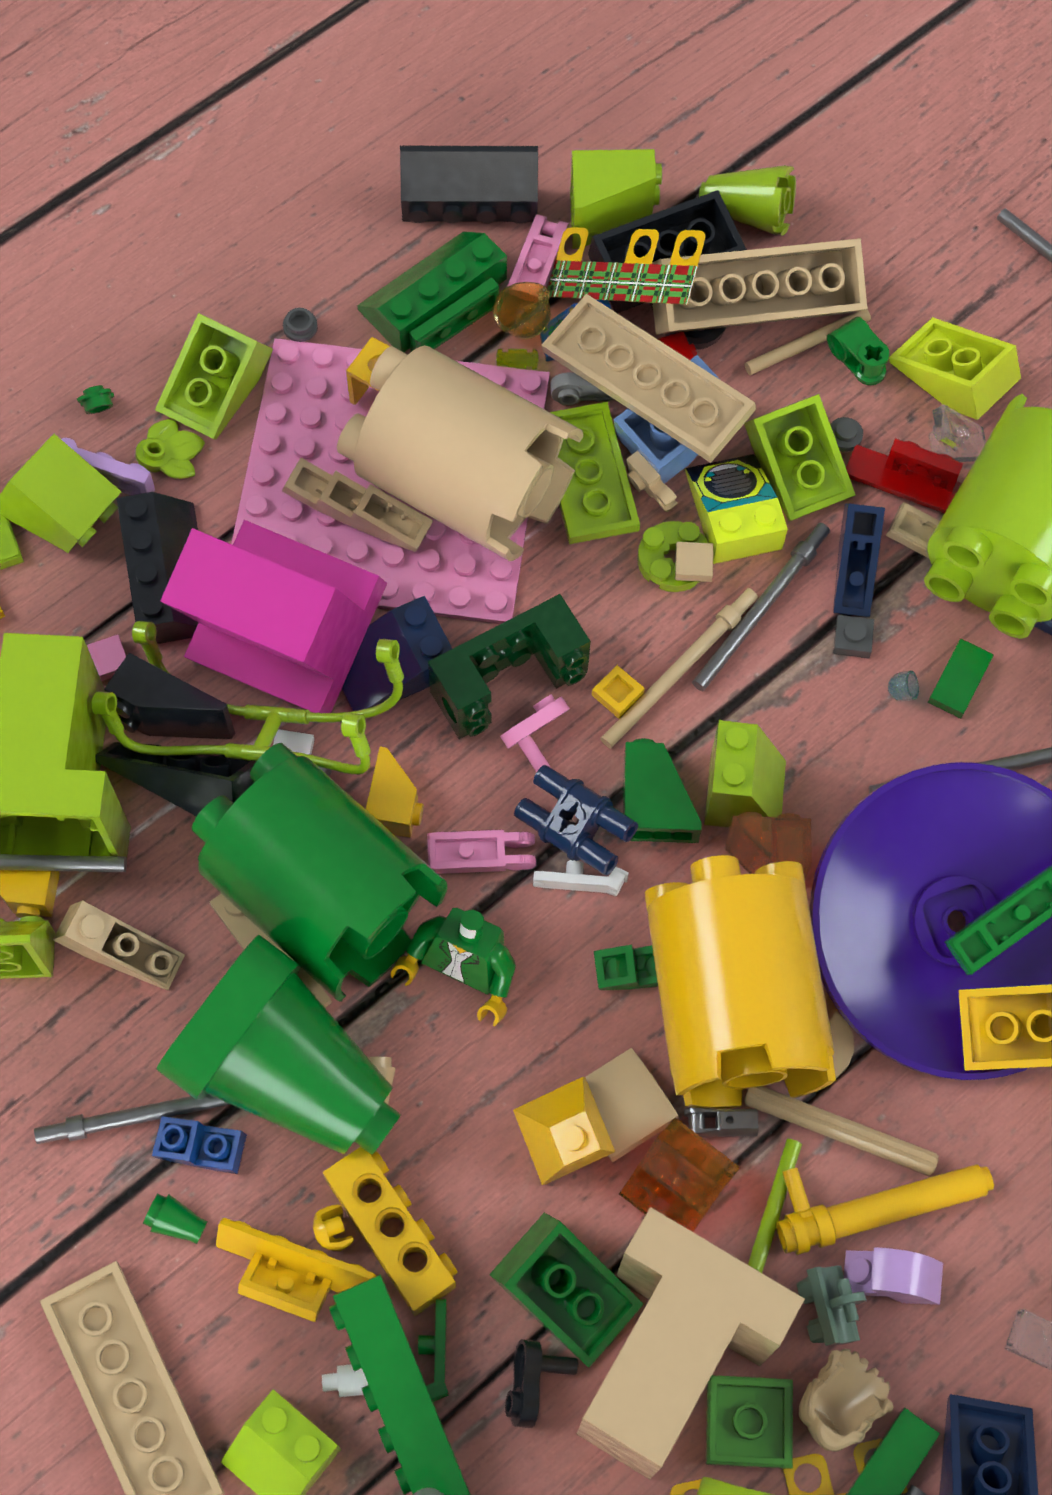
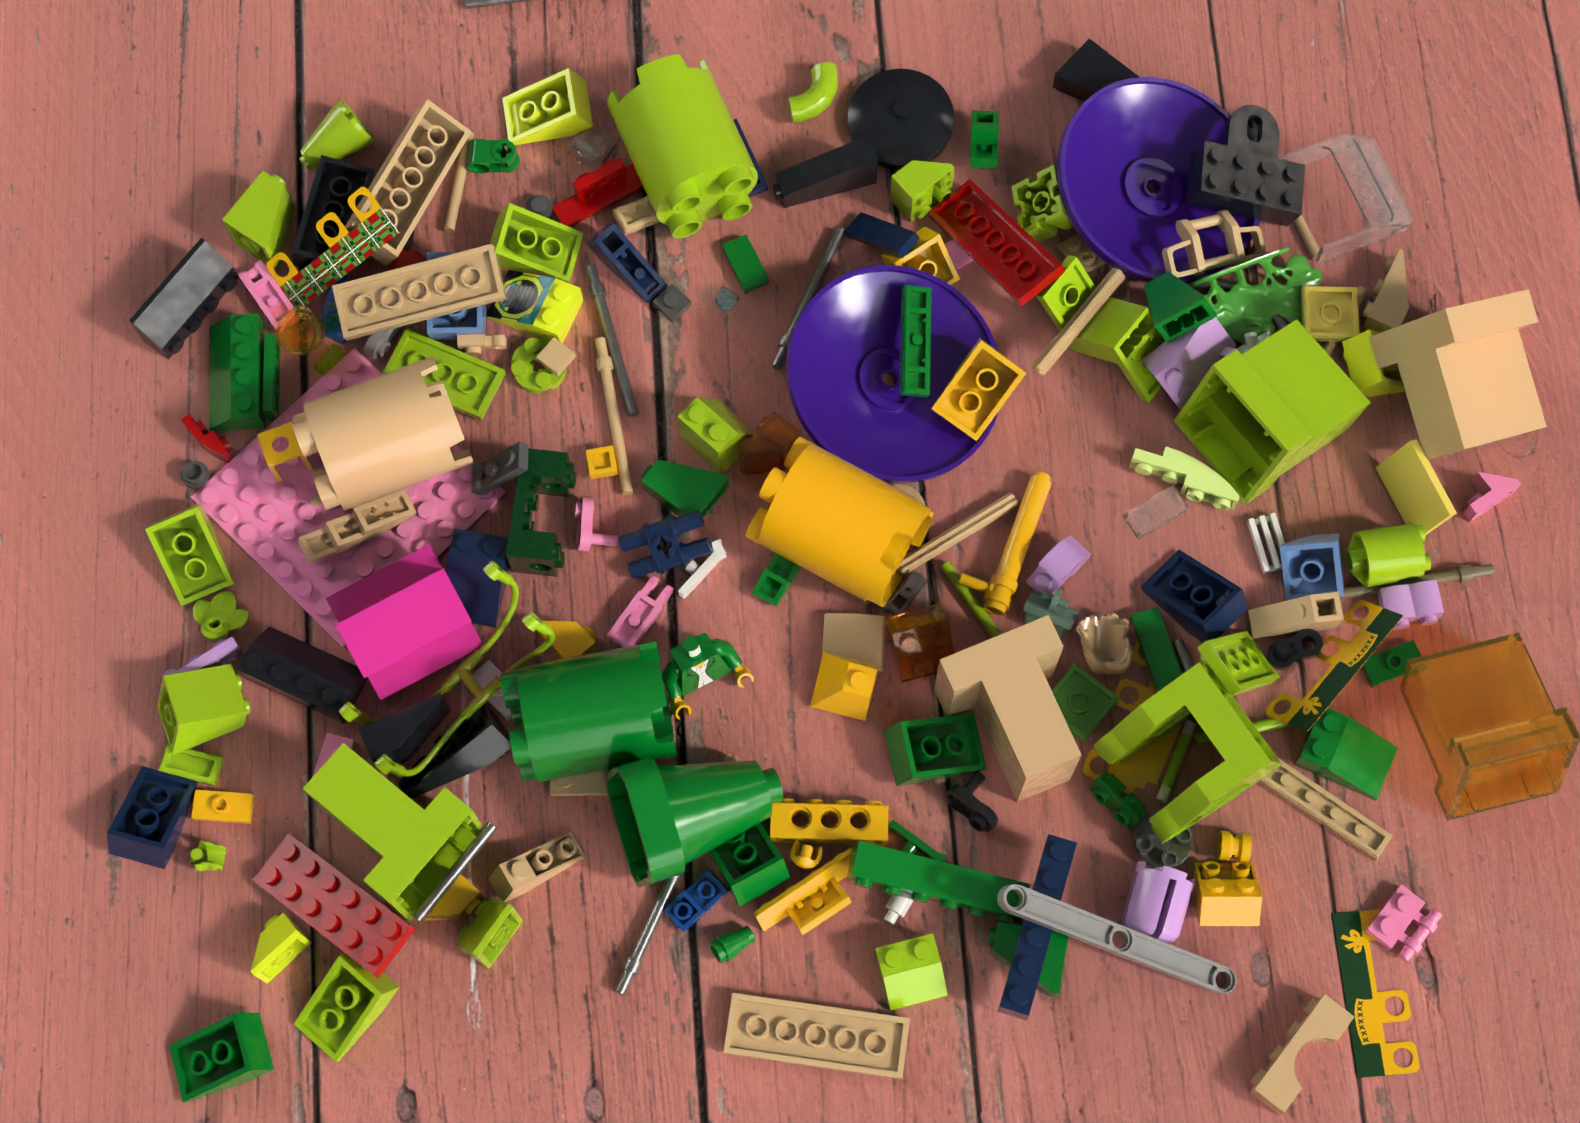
camera: 50 degrees left, 5 degrees up
(96, 399) = (146, 637): green plate -> none
(277, 1174) = (750, 864): none -> green slope
(343, 307) = (208, 440): none -> red slope
(522, 591) = (500, 468): none -> dark grey plate

